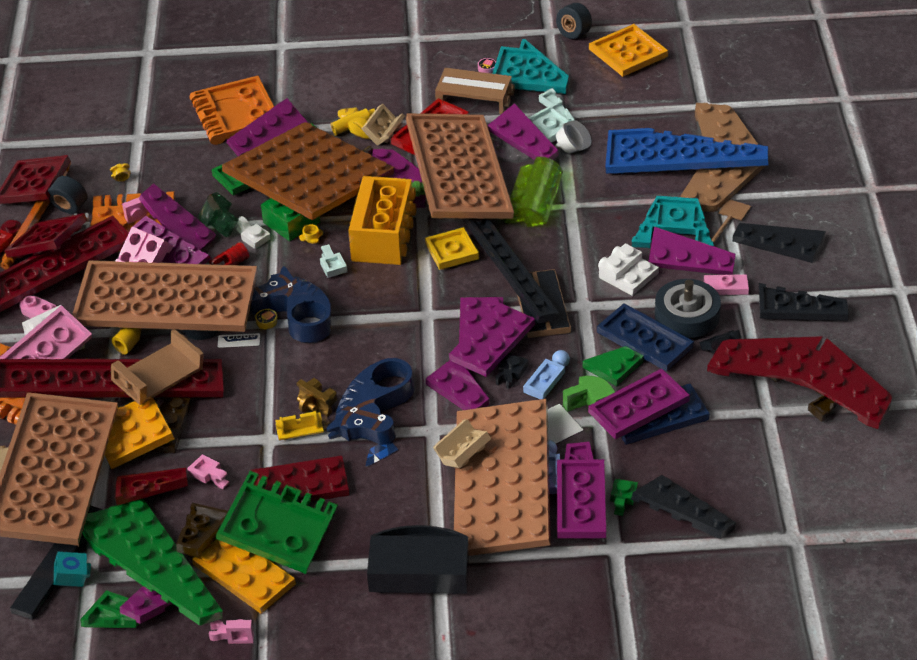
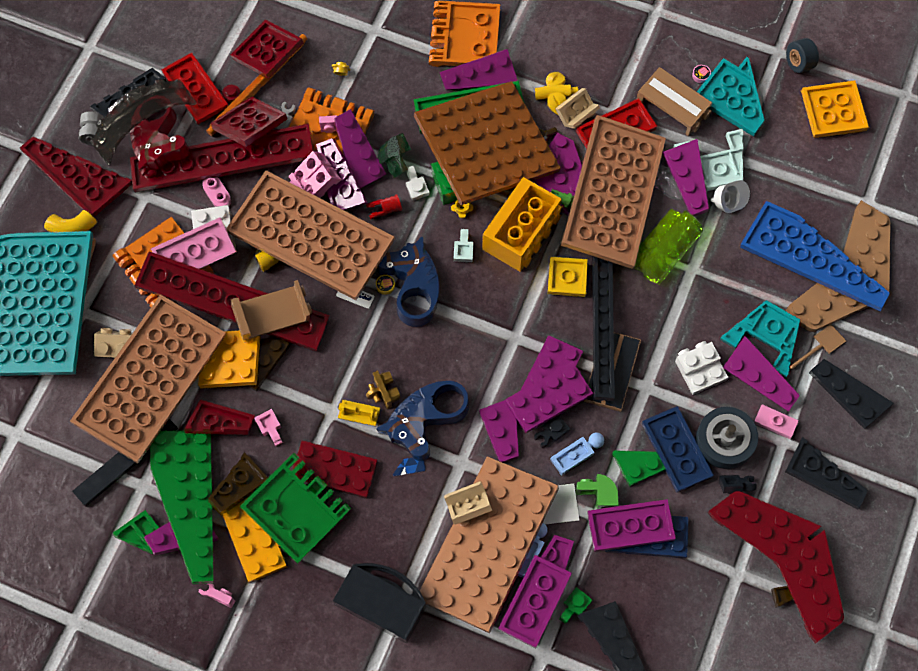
camera: 25 degrees right, 25 degrees up
(67, 194) = (286, 80): black wheel -> none
(71, 569) = (127, 479): teal brick -> none

